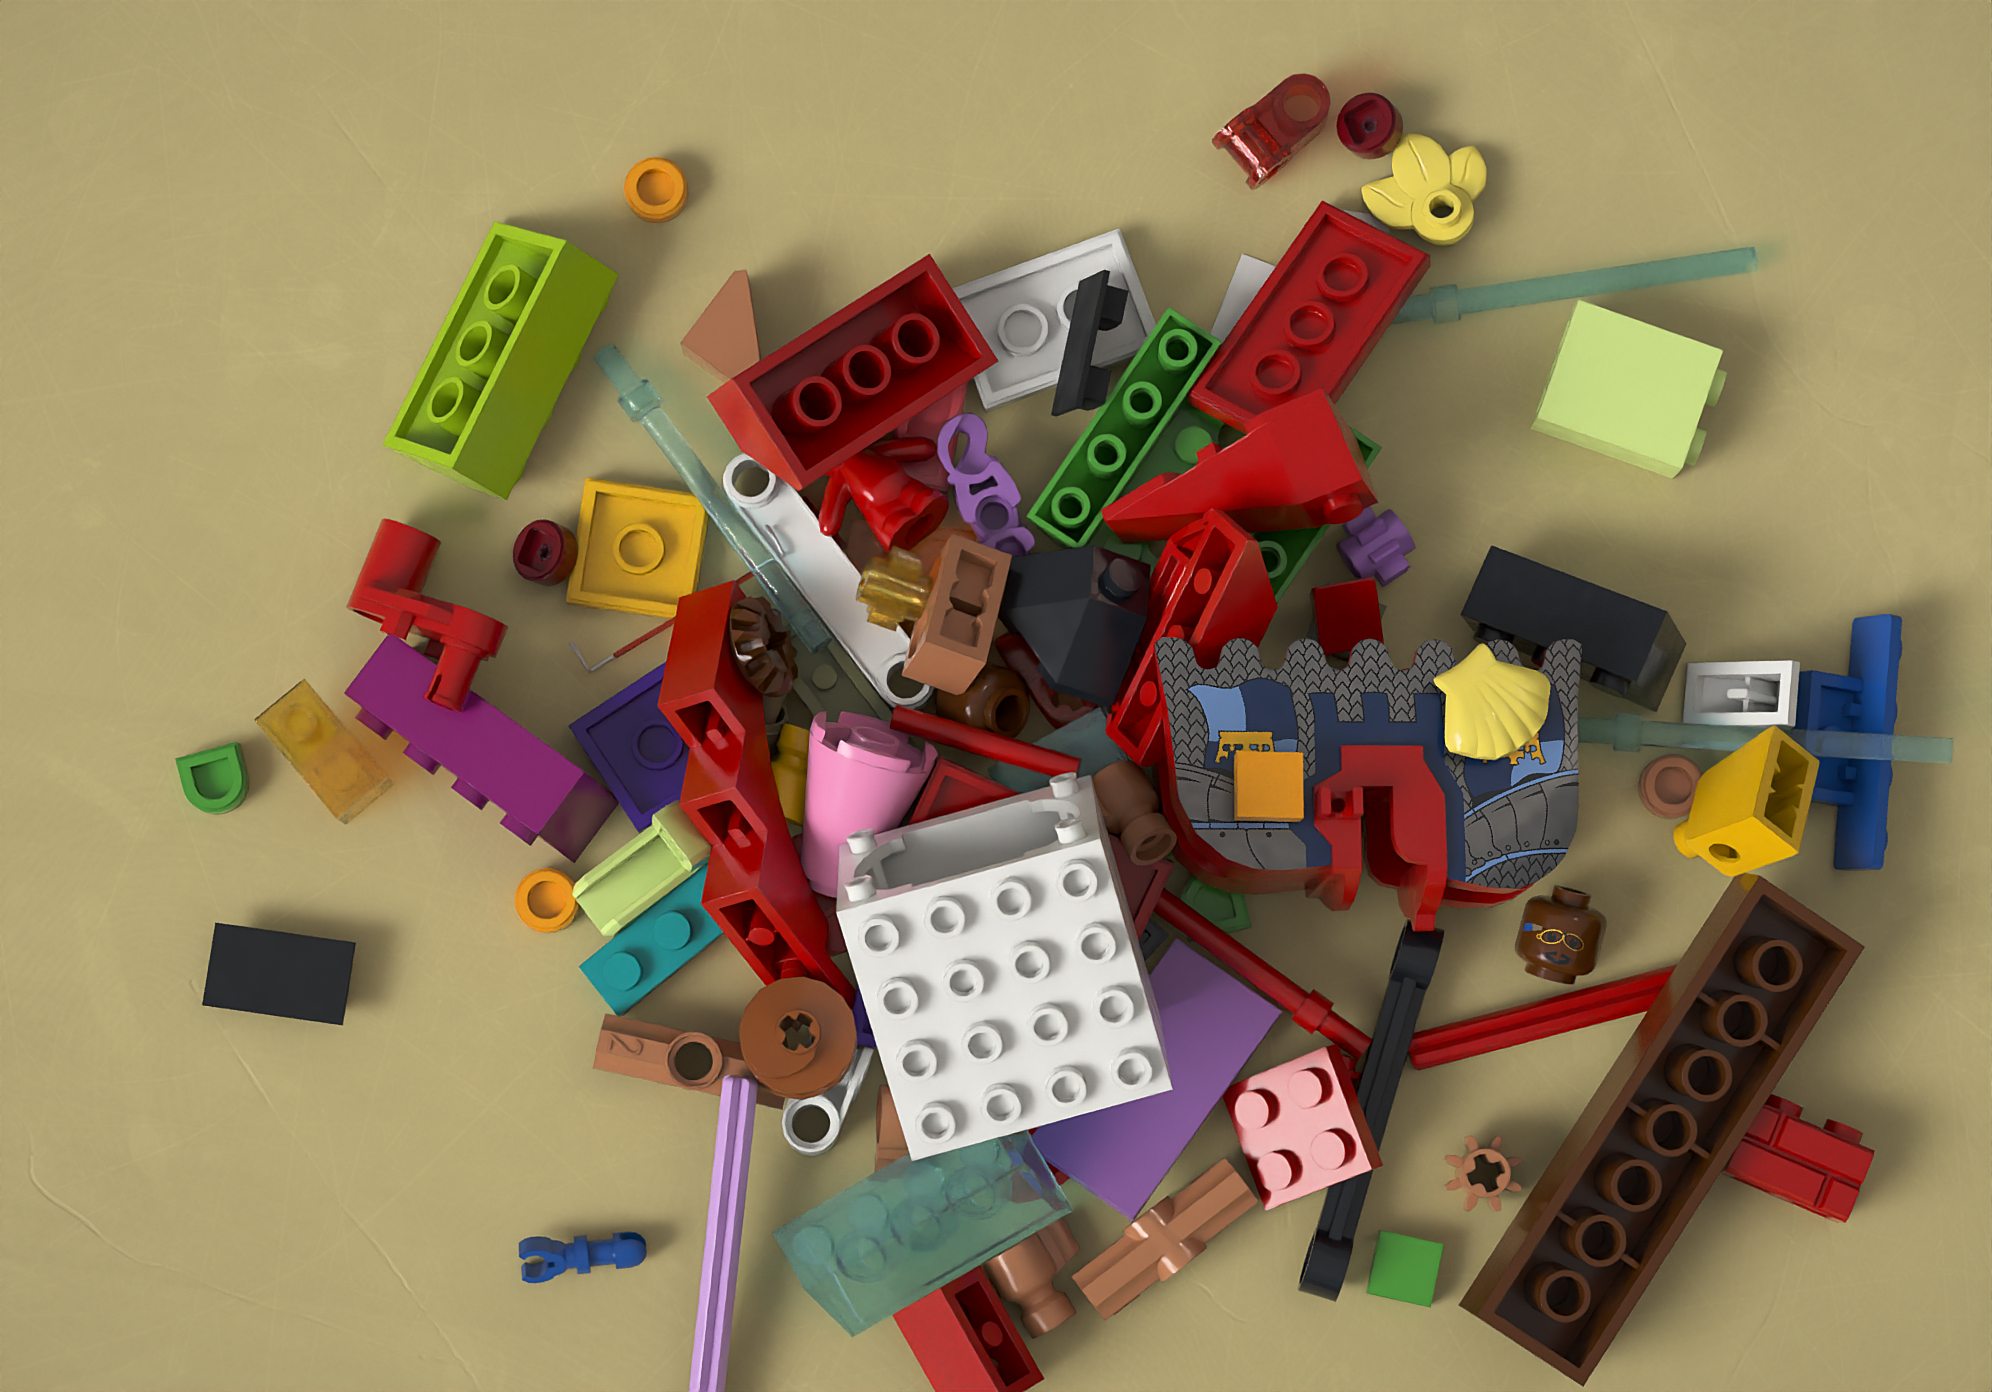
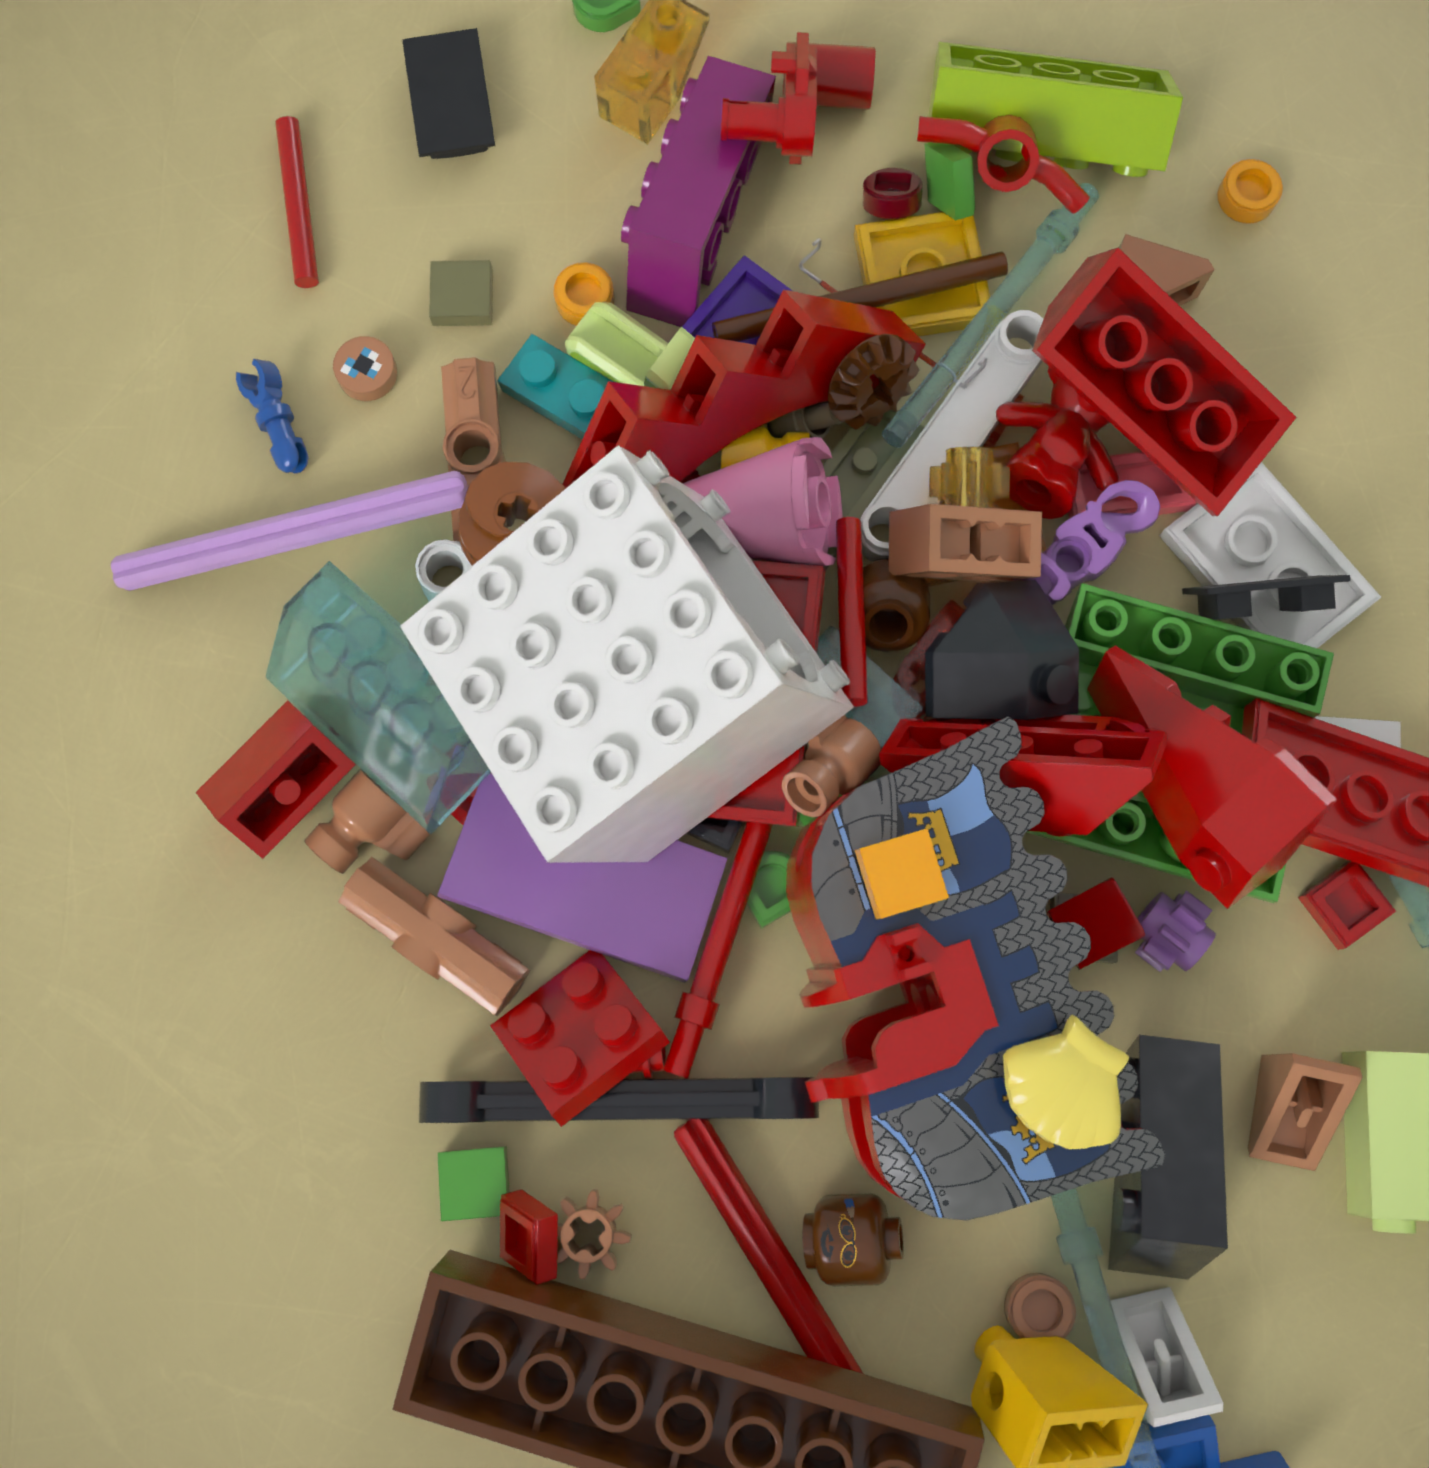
camera: 75 degrees right, 5 degrees down
(344, 1168) = (296, 202): none -> red bar
(505, 1026) = (461, 293): none -> olive tile
(556, 492) = (950, 180): none -> bright green tile
(557, 1148) = (365, 368): none -> nougat tile
(559, 431) = (1012, 177): none -> red piece
(657, 622) = (881, 292): none -> reddish brown piece
(1399, 373) = (1346, 904): none -> red tile
(1469, 1227) = (528, 1236): none -> red tile
(1569, 493) = (1299, 1108): none -> nougat slope

